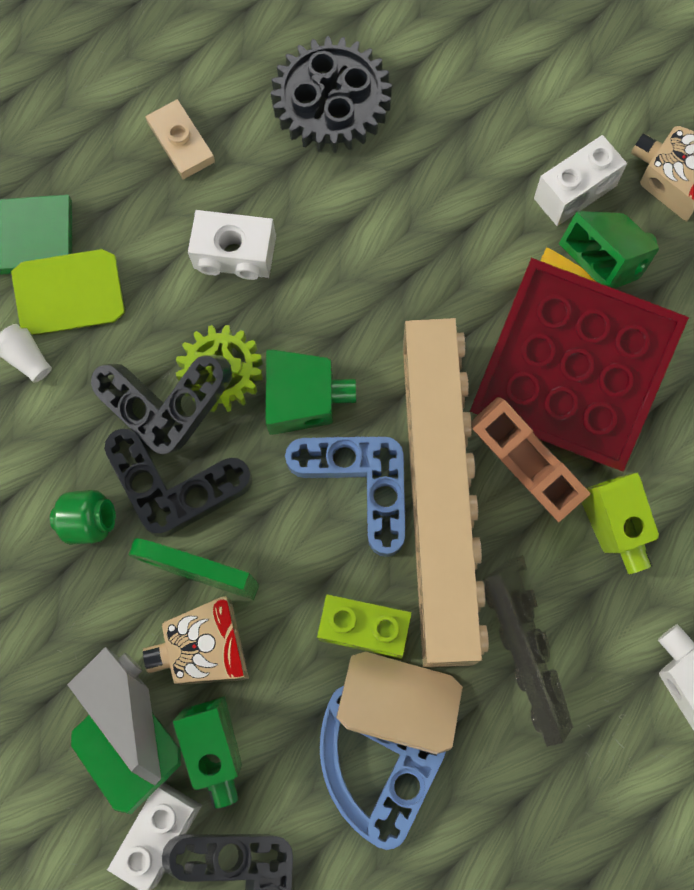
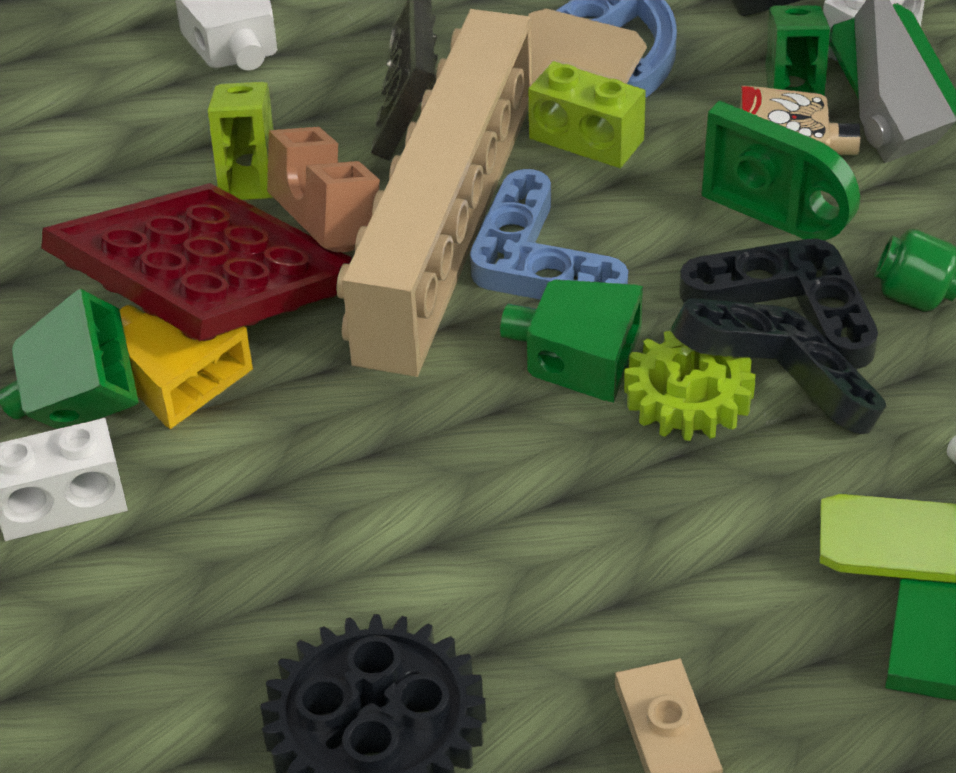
camera: 165 degrees left, 30 degrees down
(216, 231) = (622, 528): white brick -> none

